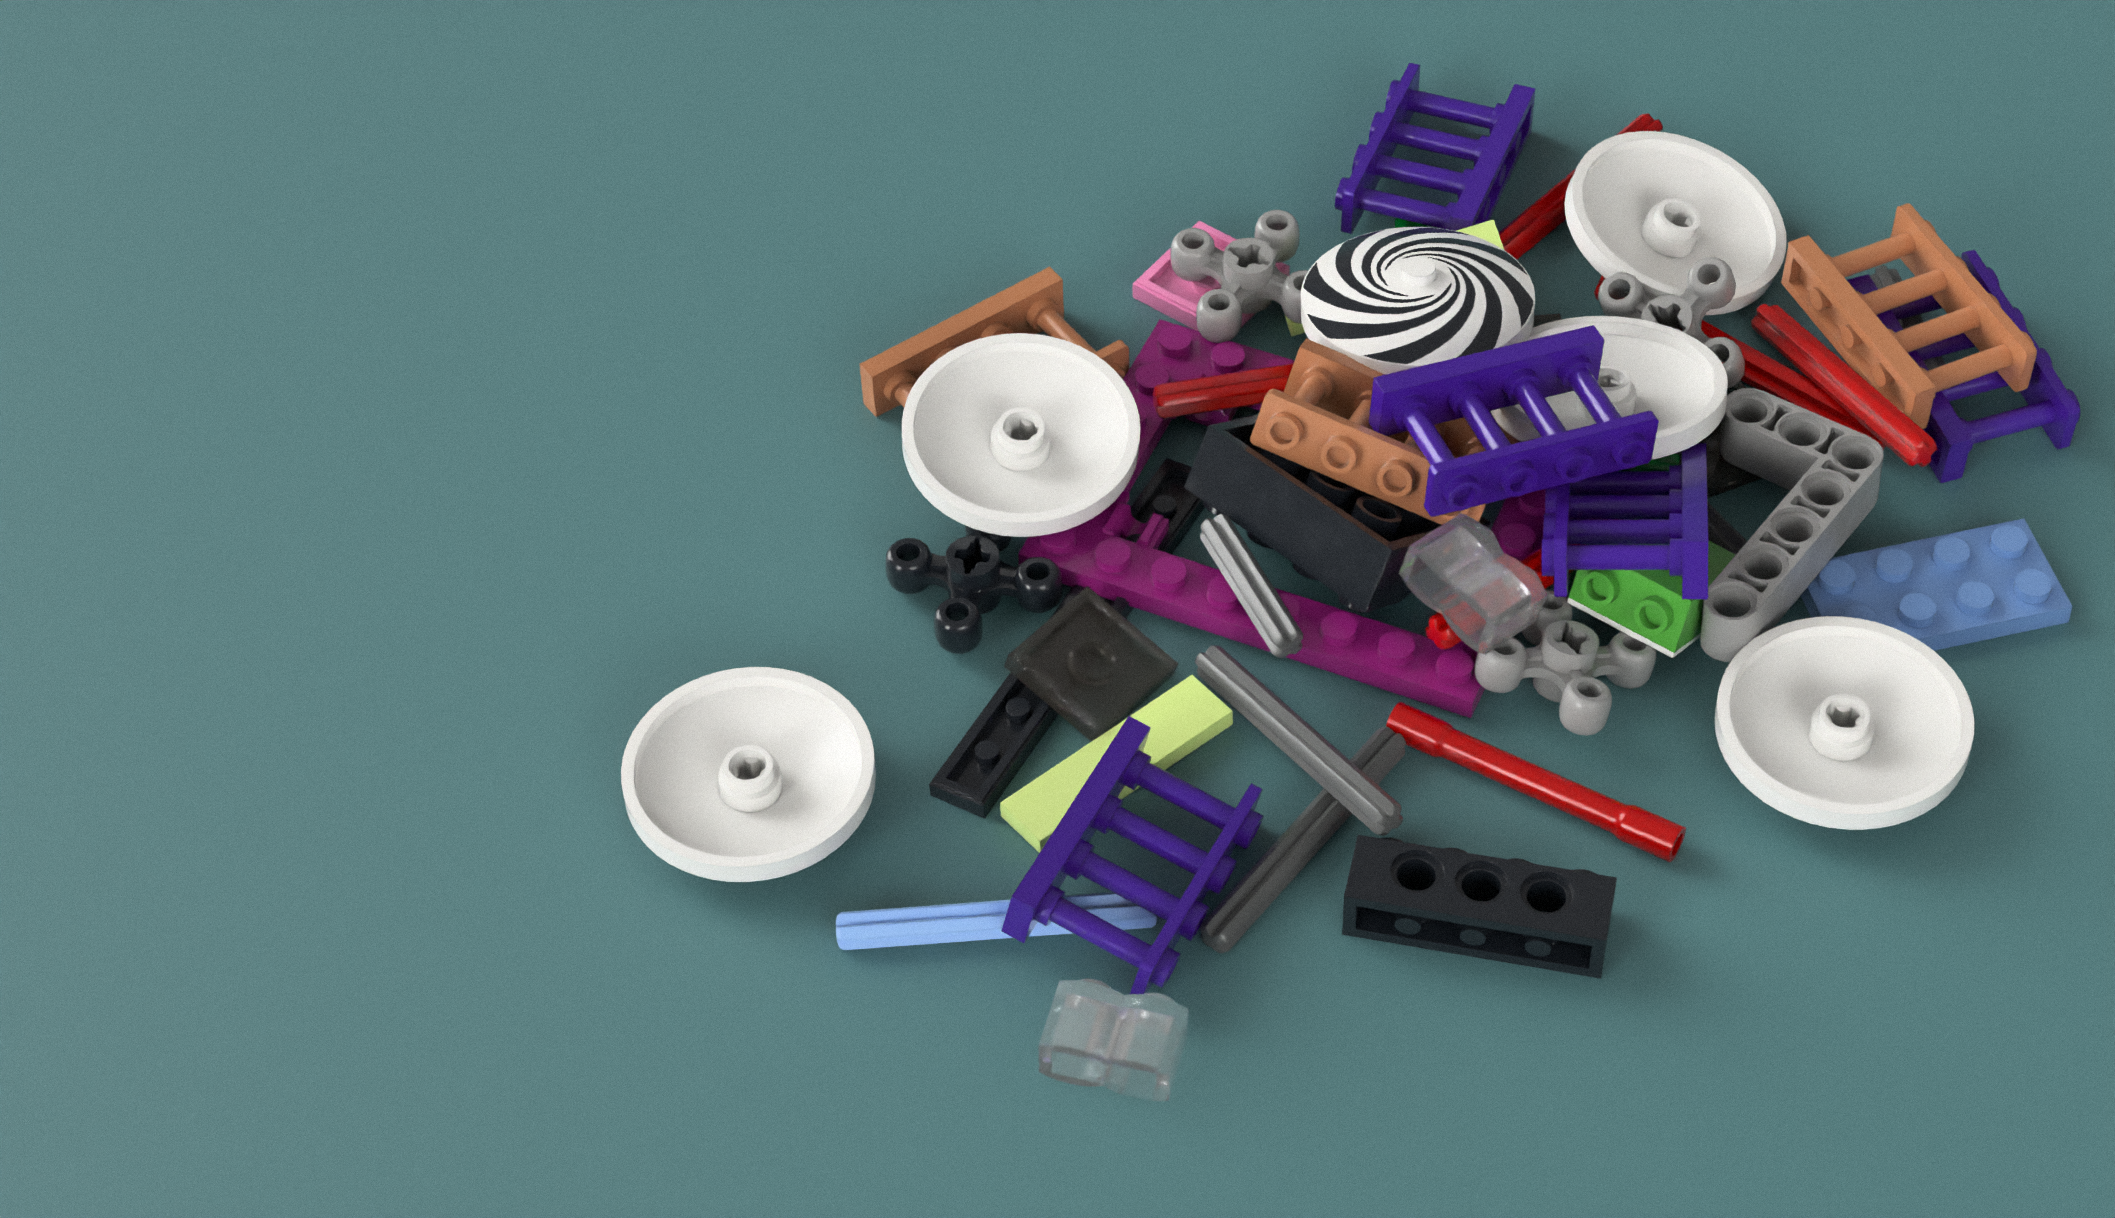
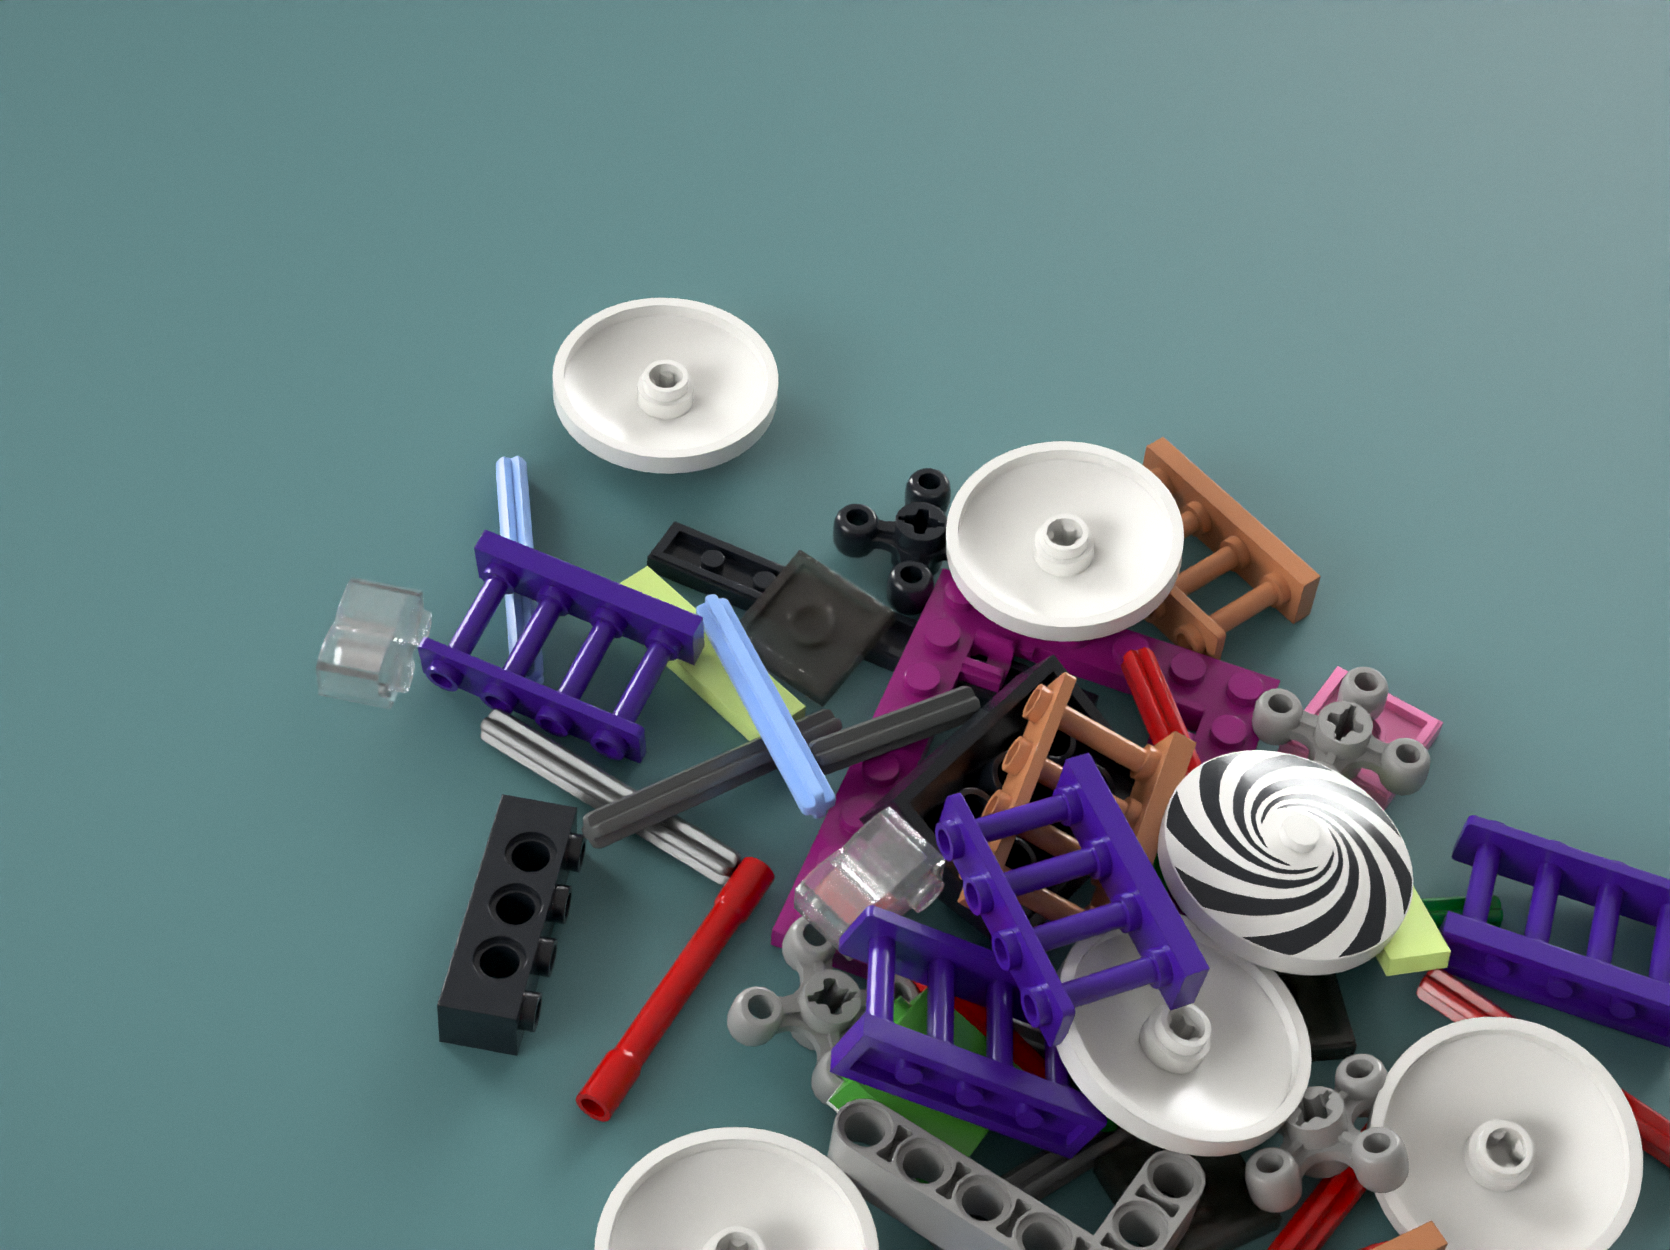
camera: 80 degrees right, 0 degrees up
(1219, 685) = (766, 708): none -> light blue axle

